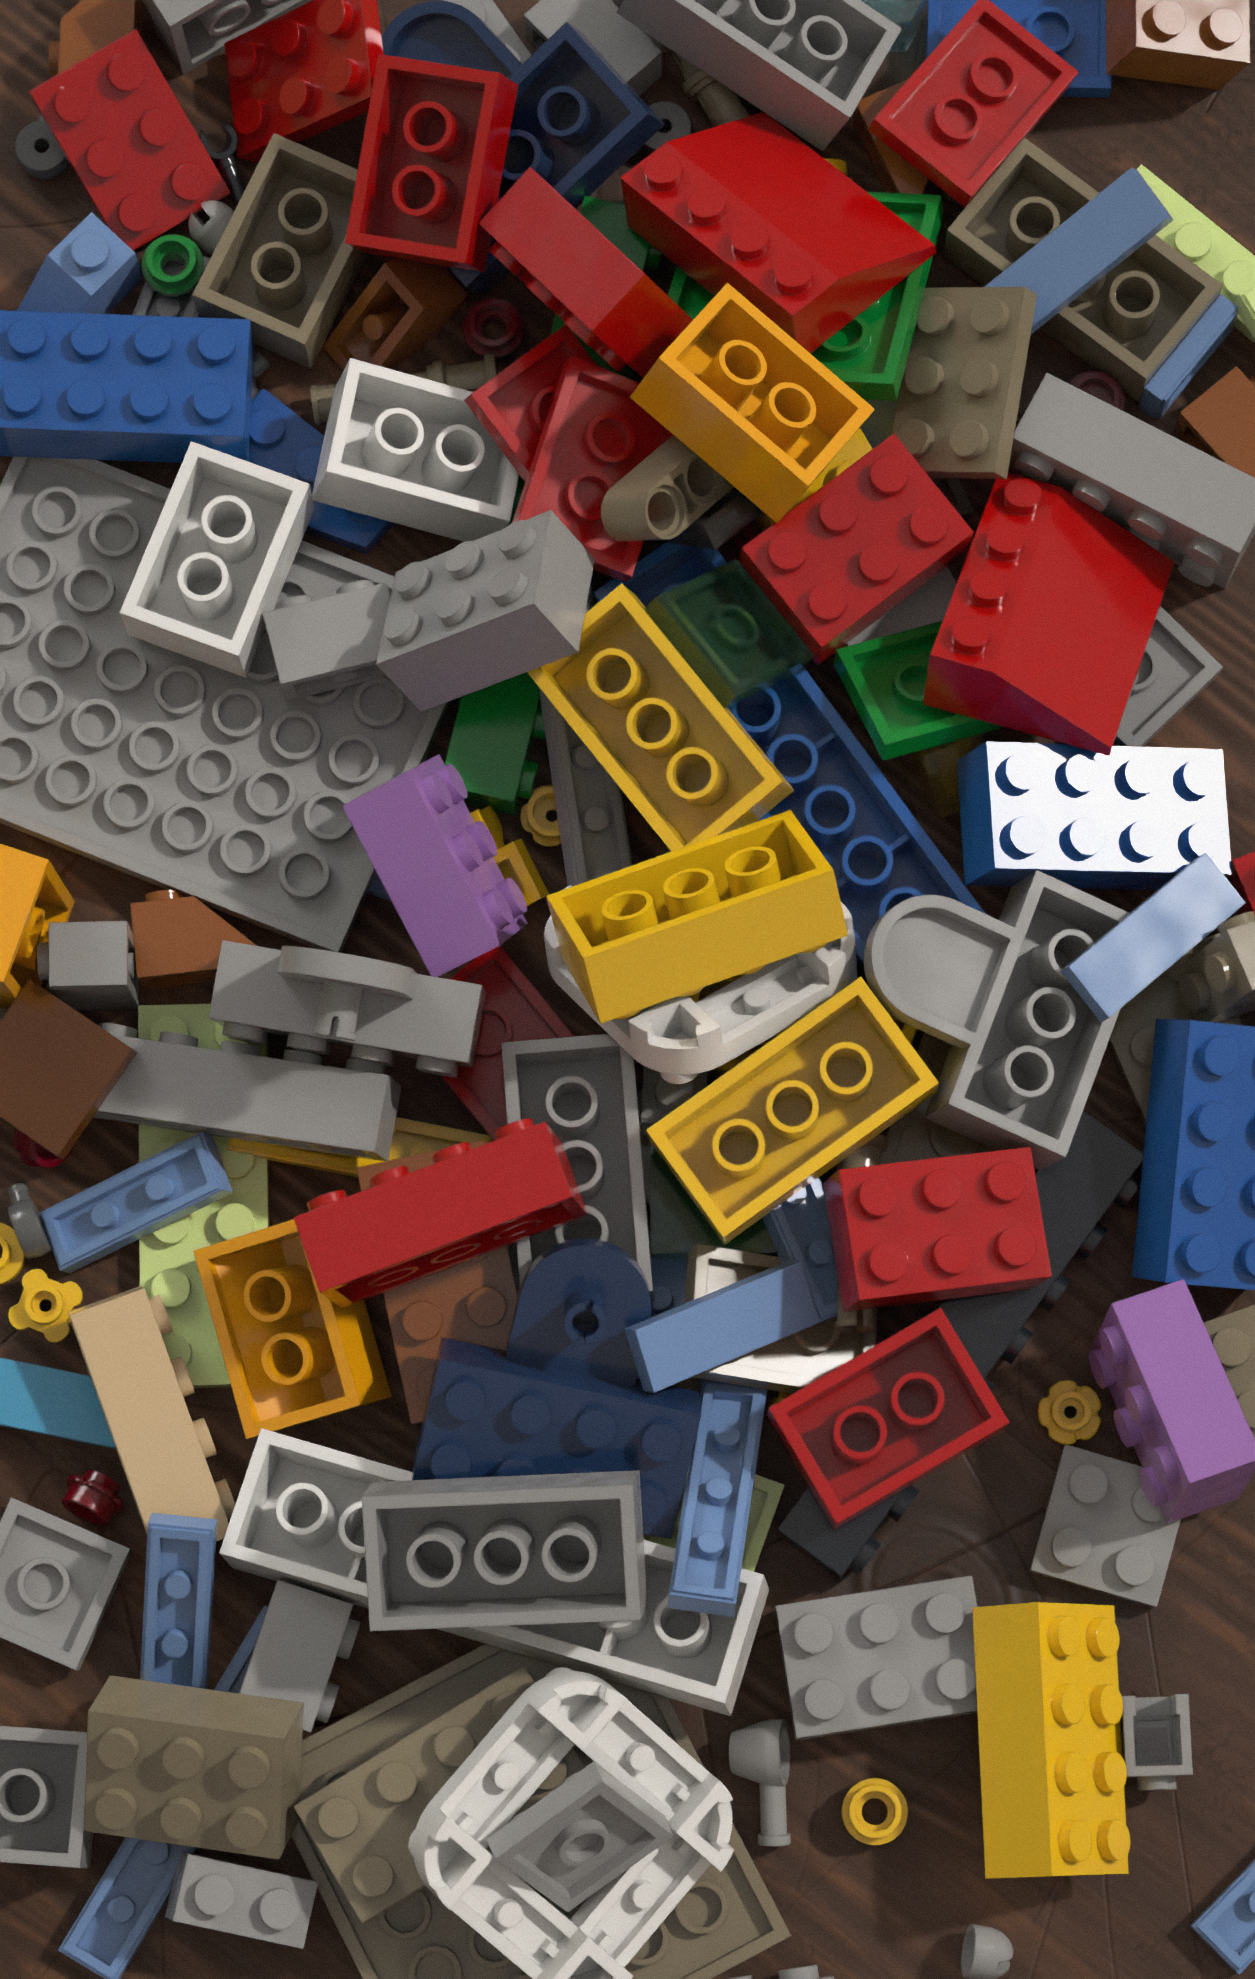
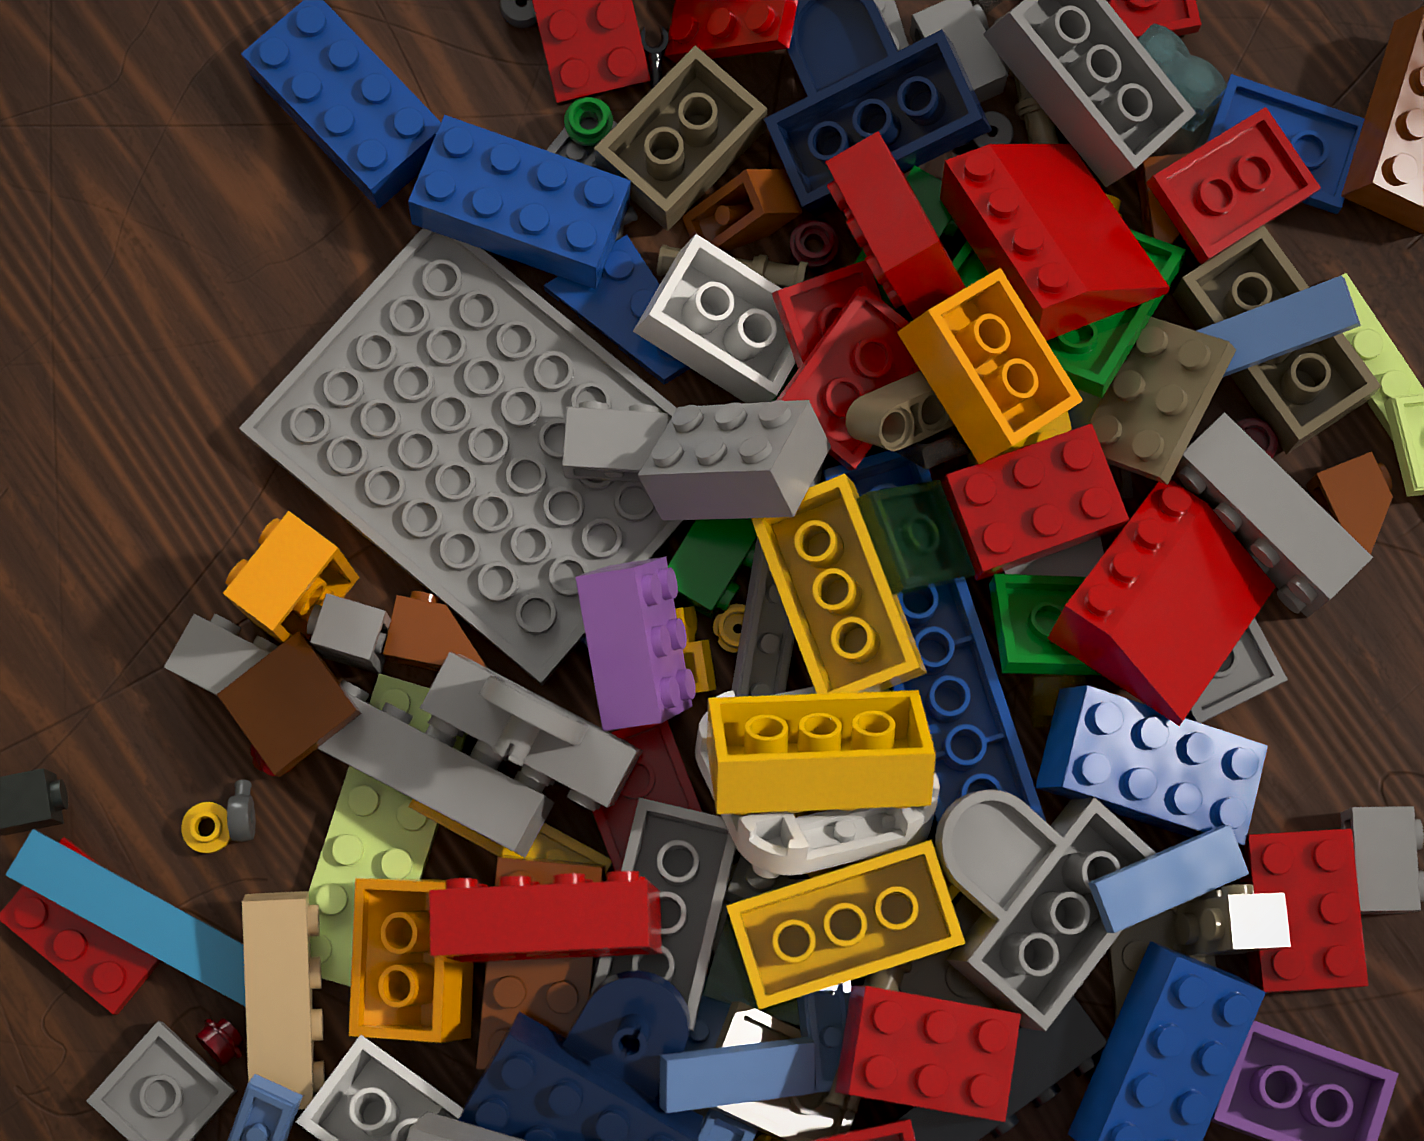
camera: 15 degrees right, 0 degrees up
(56, 1320) = (219, 880): yellow plate -> none
(84, 273) = (520, 107): medium blue slope -> none
(136, 1202) = (326, 825): medium blue tile -> none
(209, 233) = (622, 104): light grey hinge -> none
(217, 559) = (547, 354): white brick -> none
(431, 162) = (804, 103): red brick -> none
(1189, 357) = (1336, 432): medium blue tile -> none

